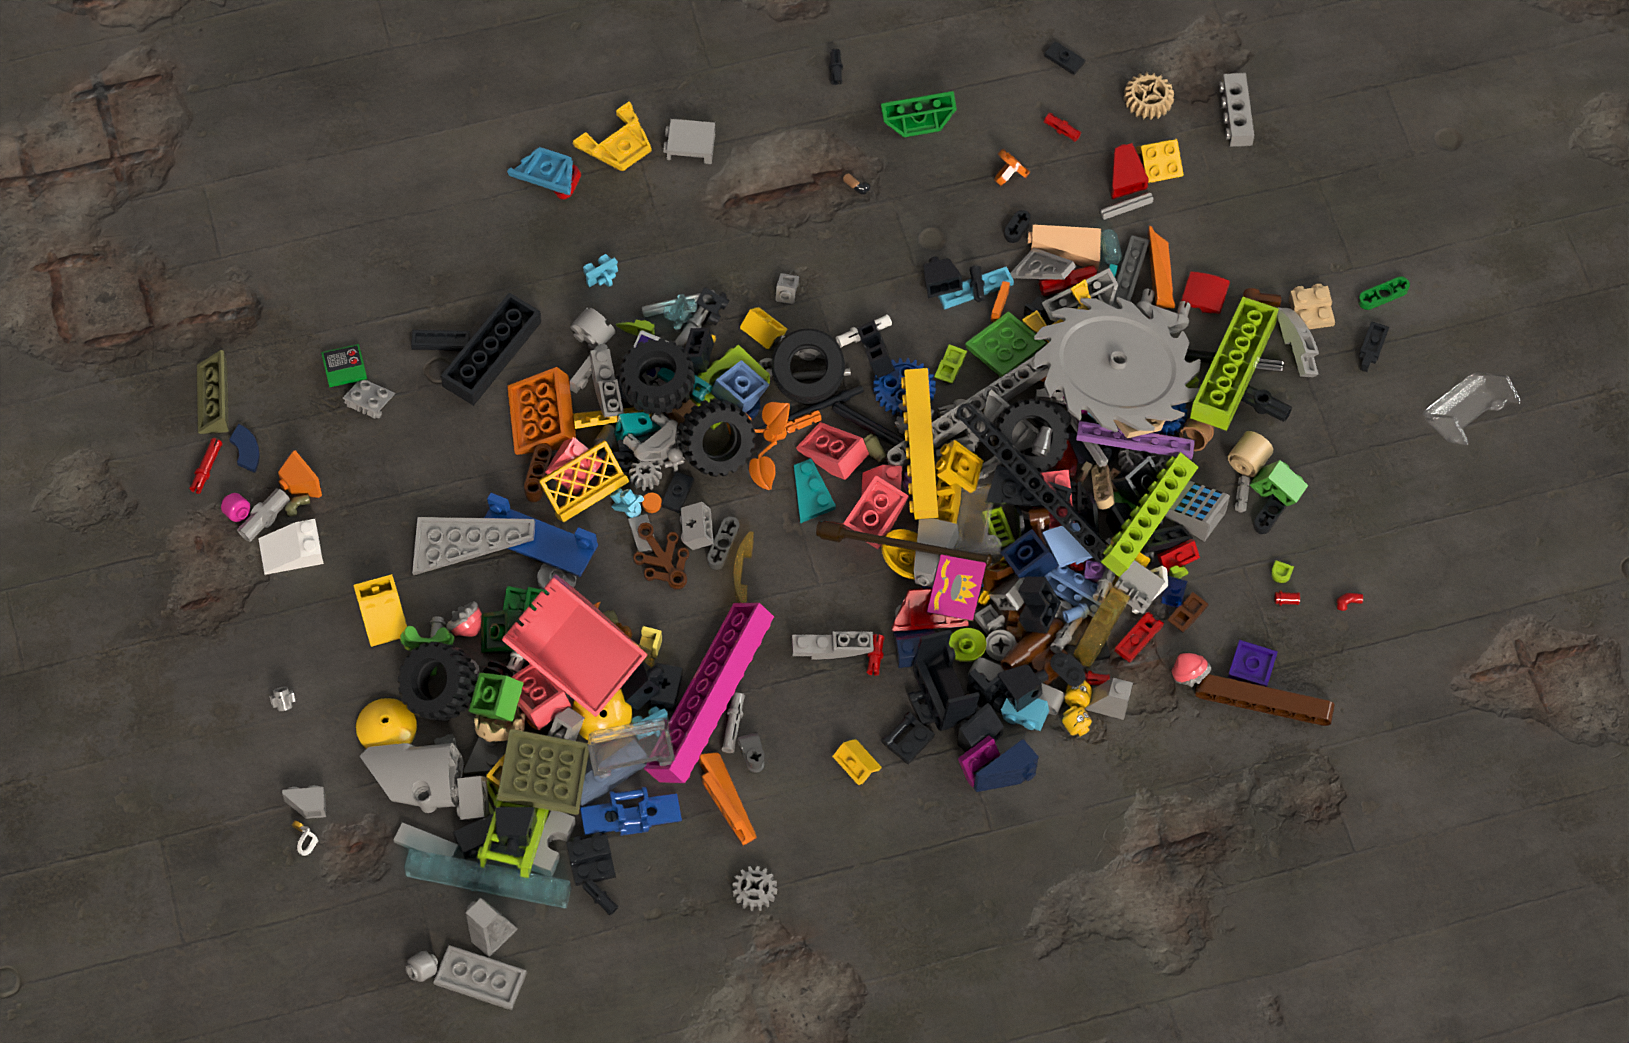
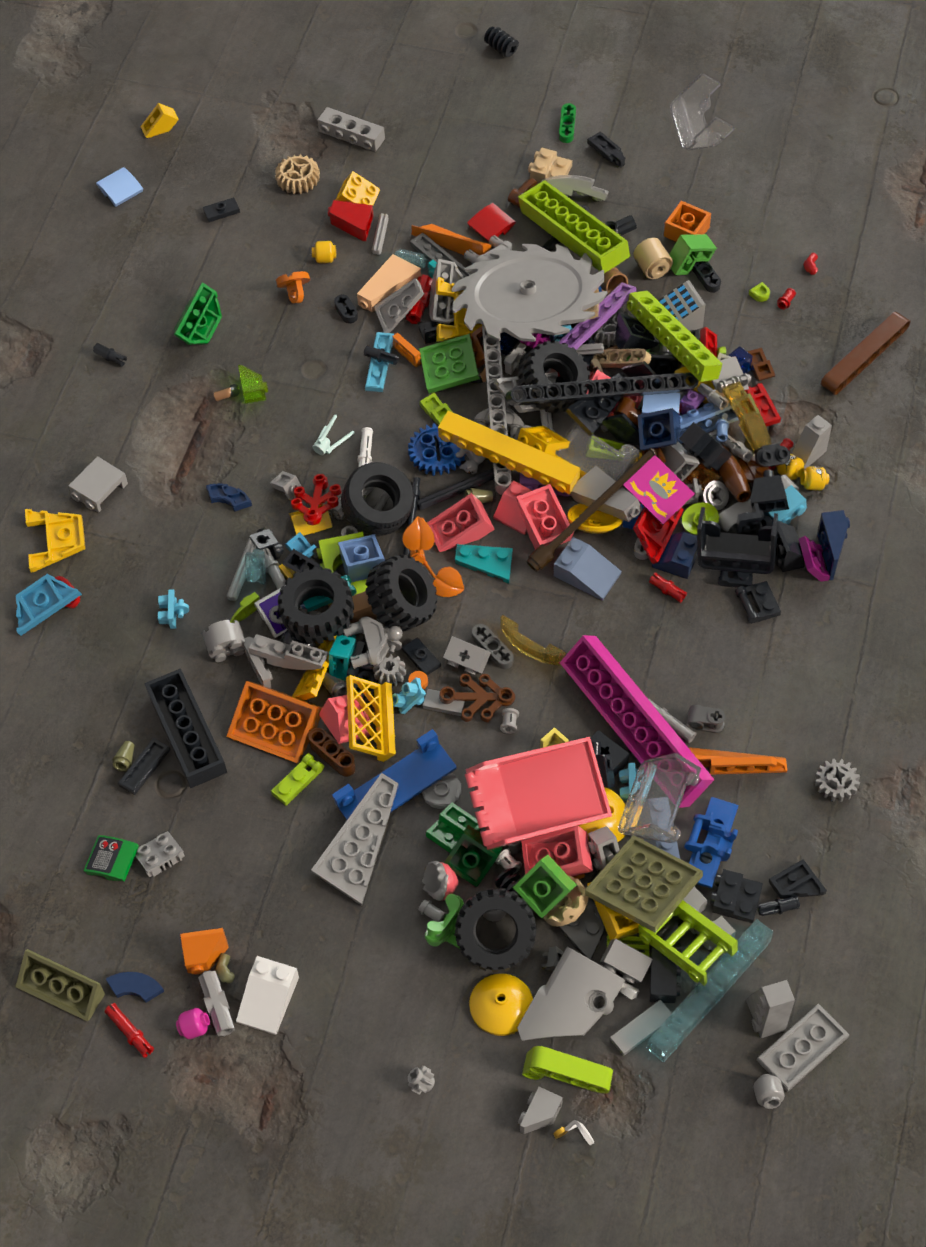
camera: 55 degrees left, 5 degrees down
(352, 804) = (567, 1068): none -> lime beam
(380, 609) = (384, 947): yellow slope -> none
(439, 320) = (124, 756): none -> olive cone
(451, 816) = (629, 991): none -> white tile
(499, 462) = (297, 779): none -> lime plate
(515, 827) = (691, 931): black torso -> none
(633, 901) = (797, 881): none -> black wing
(654, 594) = (509, 720): none -> light grey bush
(727, 335) = (300, 544): none -> dark azure bracket
(748, 248) = (226, 494): none -> dark blue tile
(760, 325) = (314, 514): none -> red plant
(832, 646) = (642, 611): light grey slope -> none
(848, 292) = (322, 444): none -> light aqua plant
(850, 577) = (586, 569): none -> sand blue slope
(856, 761) = (759, 648): yellow panel -> none
(874, 199) = (252, 385): none -> clear neon green slope
(876, 349) = (404, 447): black arch -> none
(941, 277) = (357, 375): black torso -> none
(1042, 442) = (572, 364): flat silver cone -> none
(1062, 127) = (281, 239): red pin -> none
(1069, 171) = (324, 252): none -> yellow head
(1190, 669) = (815, 383): coral hair -> none
(1242, 493) = (675, 281): light grey axle -> none
(1252, 664) = (830, 345): dark purple plate -> none
(1317, 463) = (686, 221): none -> orange brick
(1447, 177) = (501, 41): none -> black piece

